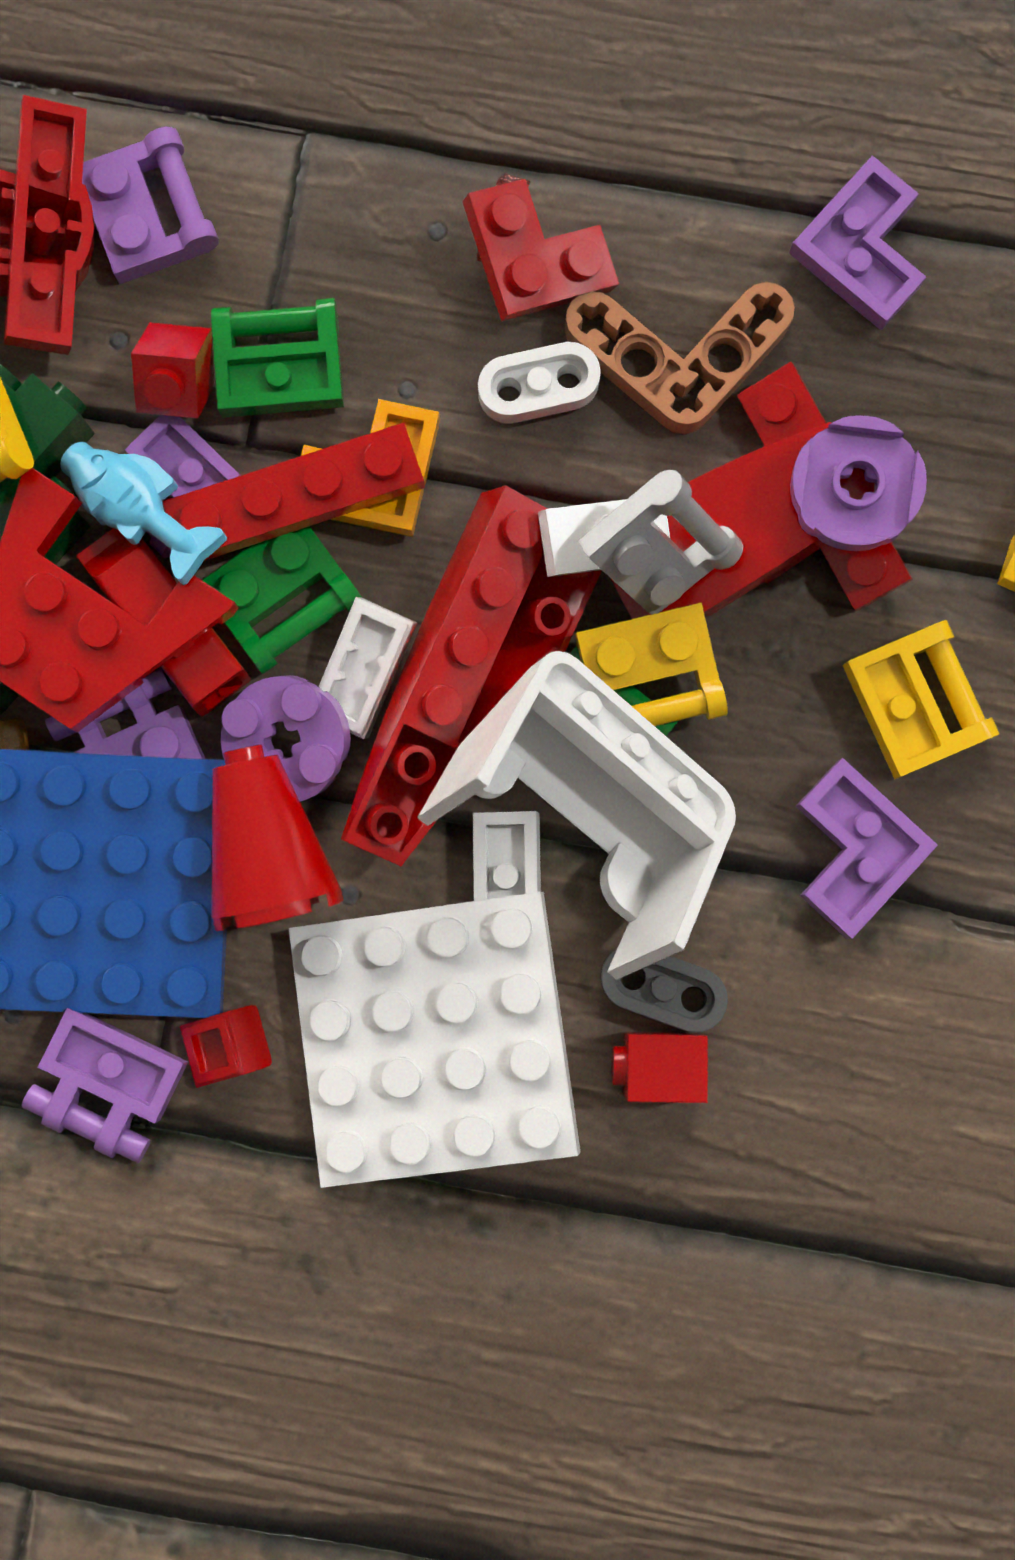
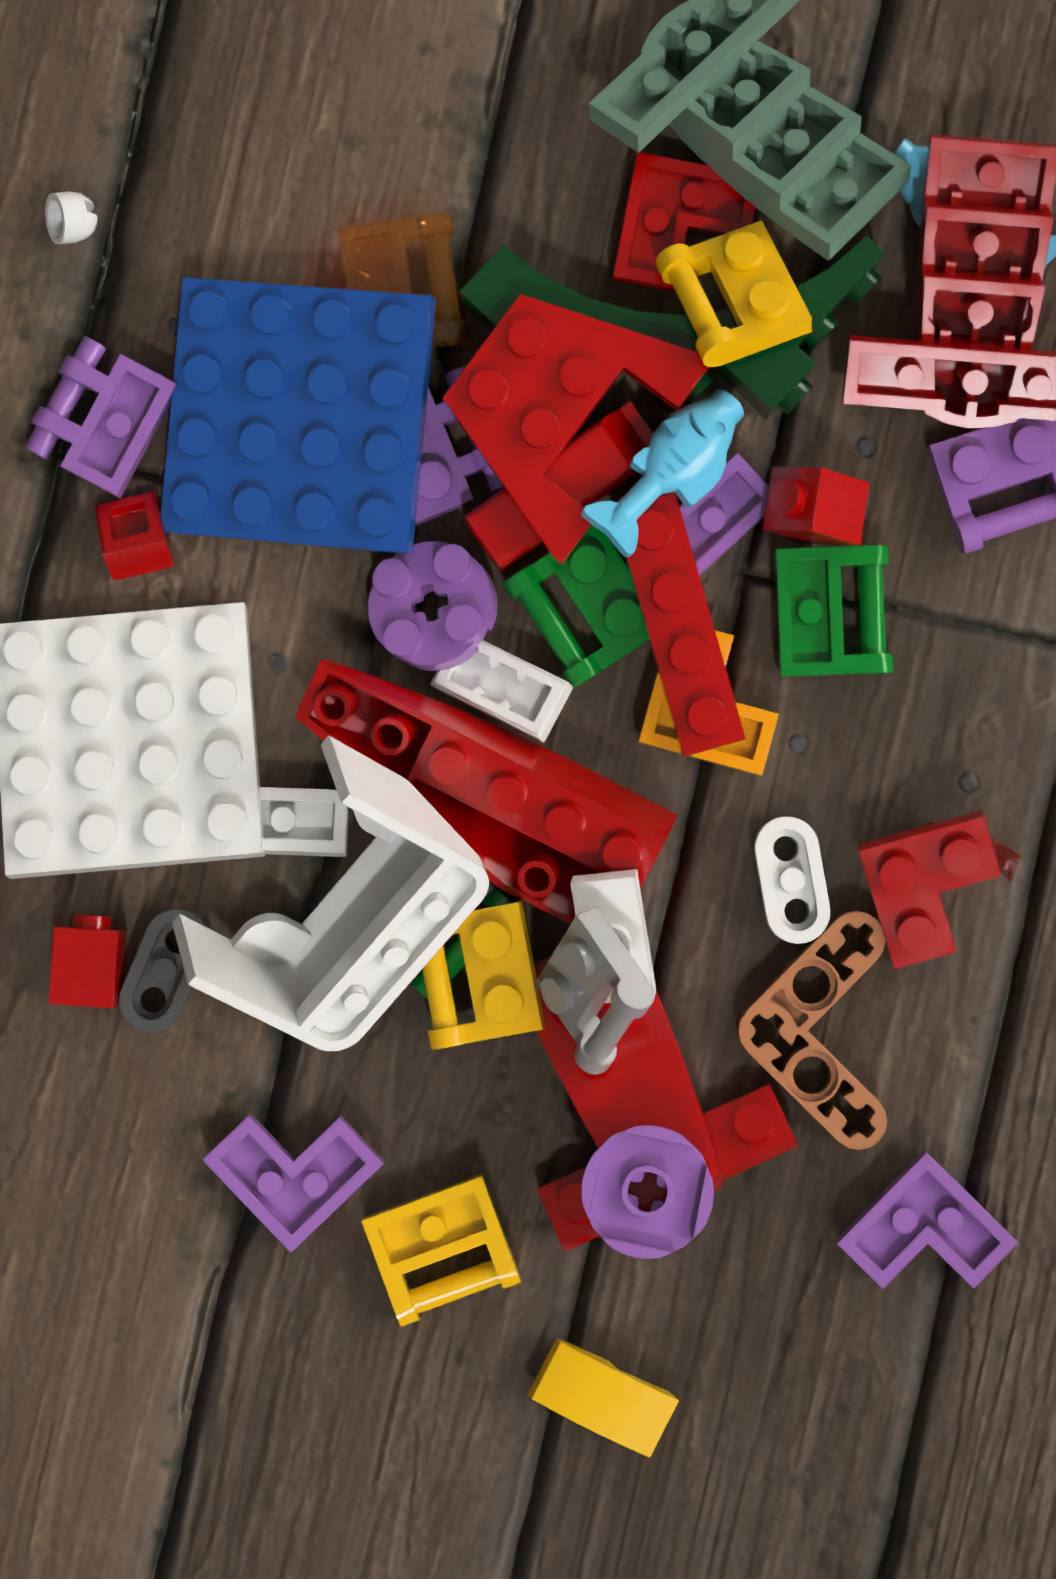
camera: 95 degrees right, 5 degrees up
(263, 845) = (318, 583): red cone -> none

